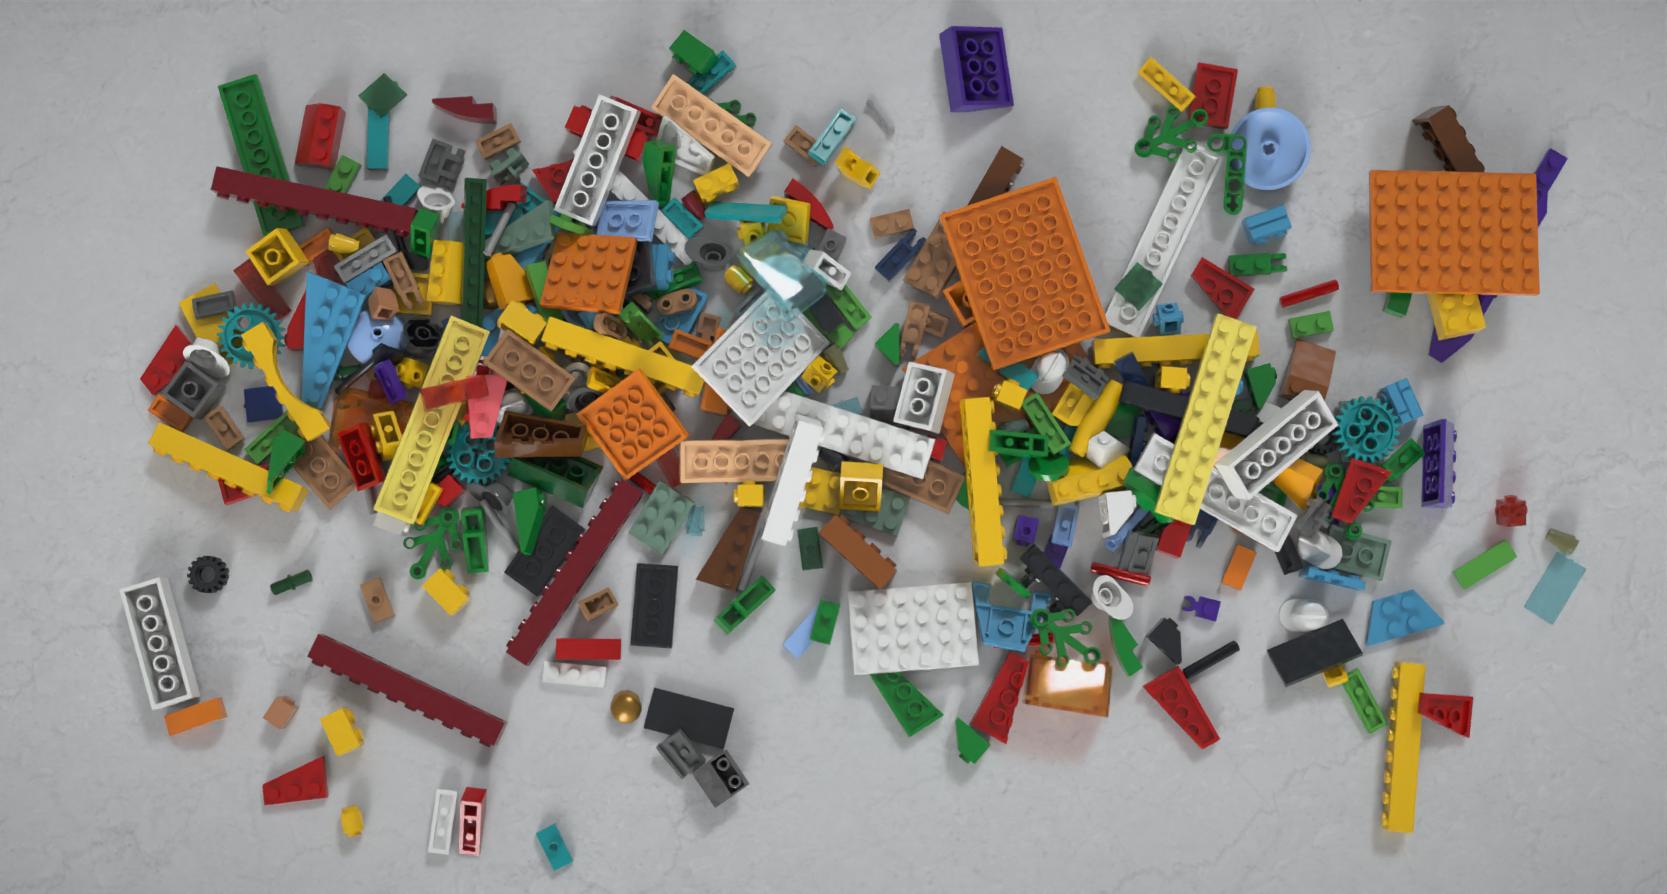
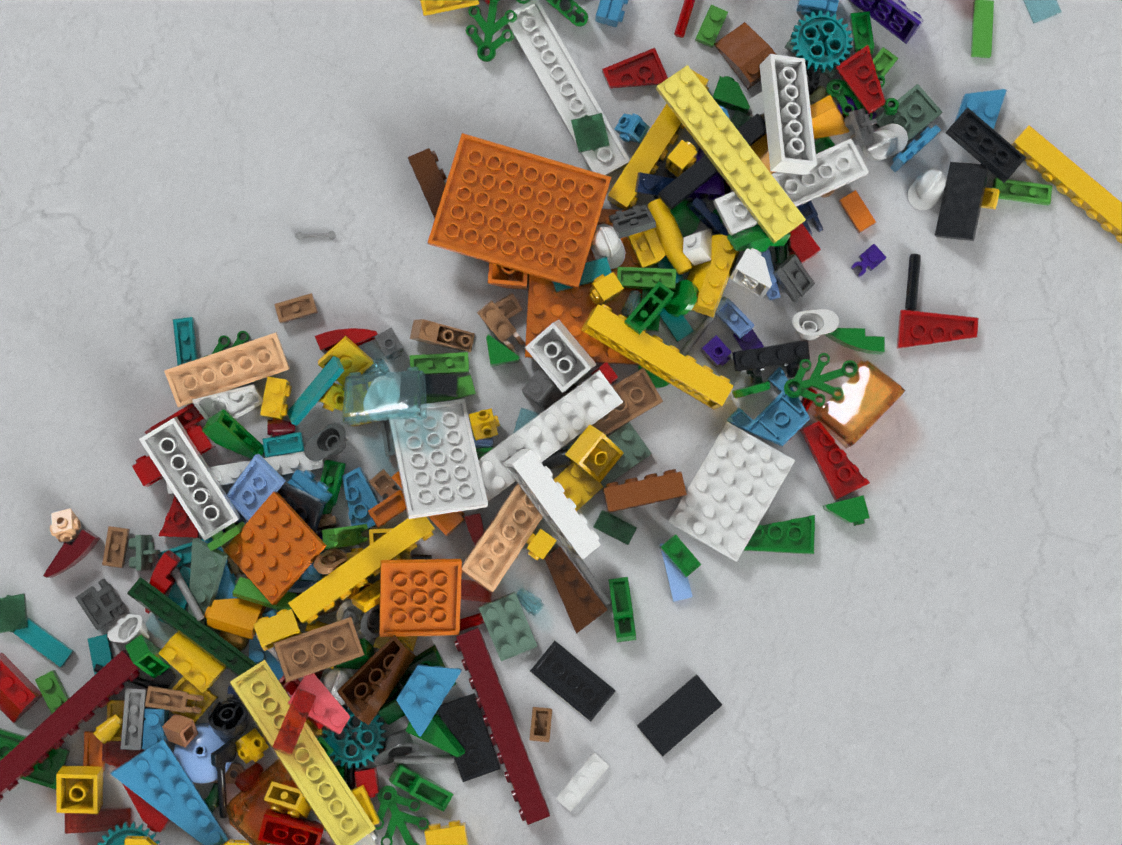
camera: 60 degrees left, 0 degrees up
(390, 382) = (247, 767): dark purple plate -> none
(486, 86) = (65, 525): none -> light nougat brick
(555, 487) = (425, 694): none -> dark azure wing
(588, 649) = (570, 757): red slope -> none
(626, 706) = (636, 758): pearl gold hair -> none
(676, 301) = (348, 495): medium nougat plate -> none
(681, 753) = (703, 741): dark grey plate -> none
(693, 54) = (159, 344): green brick -> none
(720, 778) = (744, 723): flat silver slope -> none
(739, 280) = (364, 434): yellow brick -> none
(828, 268) = (402, 359): white slope -> none
(832, 137) = (304, 283): teal tile -> none
(835, 357) = (478, 402): olive cone -> none
(856, 169) = (343, 282): yellow brick -> none
(870, 285) = (441, 335): none -> medium nougat slope
(891, 223) = (405, 285): medium nougat plate -> none
(899, 256) = (435, 298): dark blue hinge -> none
(932, 265) = (461, 275): medium nougat plate -> none
(976, 68) = (331, 135): dark purple slope -> none
(1124, 575) = (803, 301): red axle -> none
(1167, 639) = (874, 303): black slope -> none
(1255, 264) = (635, 34): green hinge -> none
(1288, 557) = (877, 169): black hinge -> none
(1379, 638) = (985, 145): none -> black tile
(1448, 711) = (1074, 133): red wing -> none

